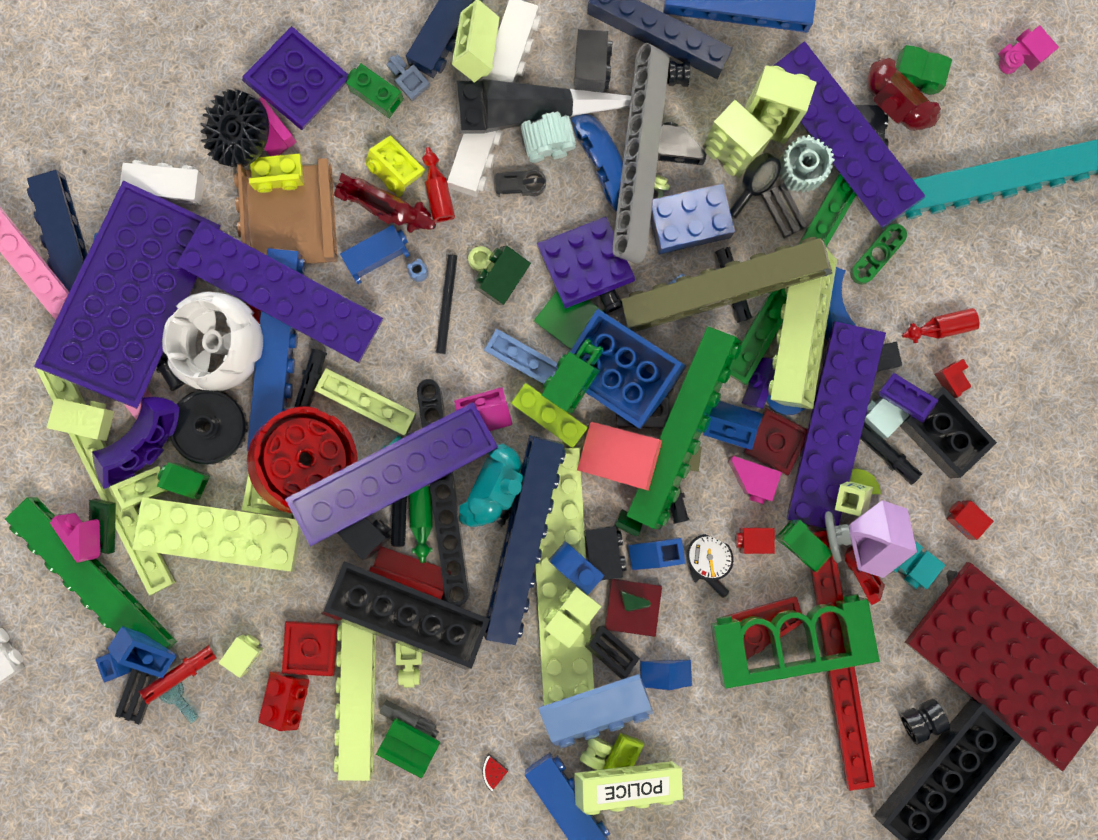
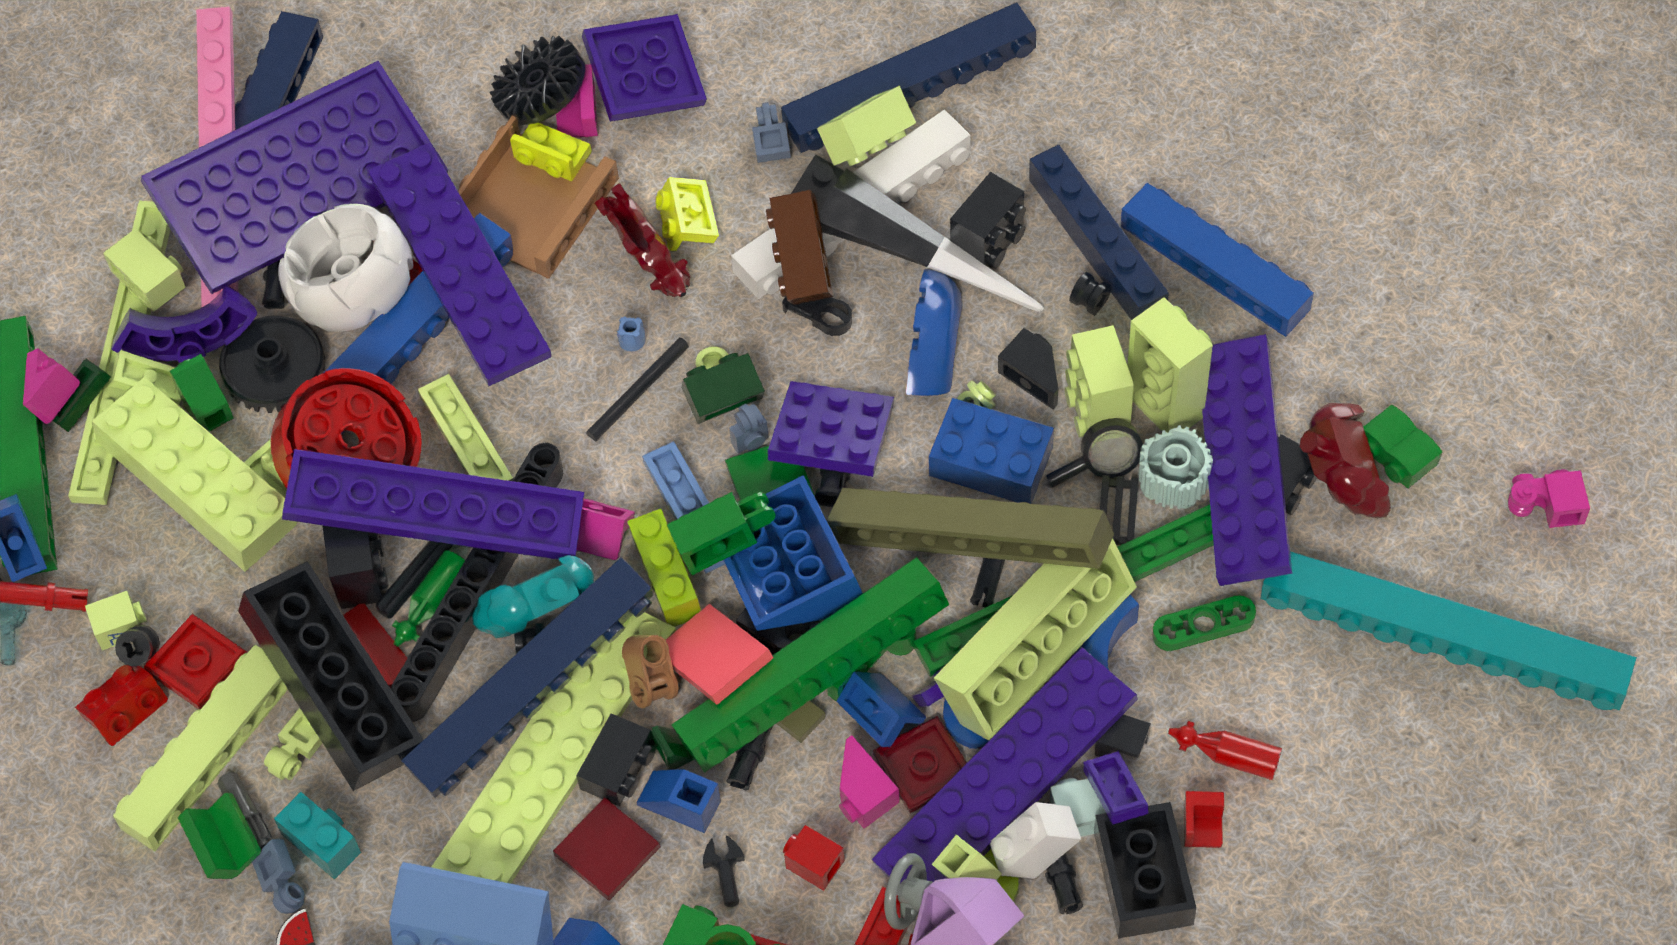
camera: 45 degrees right, 25 degrees down
(172, 184) = (431, 101): white brick -> none
(269, 665) = (145, 643): none -> black wheel
(310, 378) = (428, 372): black pin -> none
(374, 90) = (722, 127): green brick -> none
(375, 252) = (596, 287): blue brick -> none
(437, 190) = (716, 264): red wheel -> none
(455, 745) = (273, 871): none -> sand blue plate
(465, 710) = (318, 835): none -> teal brick
(491, 154) = (799, 247): none -> reddish brown brick
(538, 294) = (750, 429): none -> sand blue plate
(548, 137) = (882, 272): light aqua brick -> none
(563, 626) = (540, 789): yellowish green piece -> none
(576, 568) = (568, 748): blue brick -> none
(586, 487) = (649, 672): none -> medium nougat piece
(595, 639) = (553, 868): black tile -> none
(633, 602) = (608, 830): dark green slope -> none
(641, 154) = (976, 346): light grey beam -> none
(710, 557) = (742, 845): white sticker -> none
(804, 544) = (863, 882): green tile -> none
(881, 456) = (1035, 840): none -> white brick

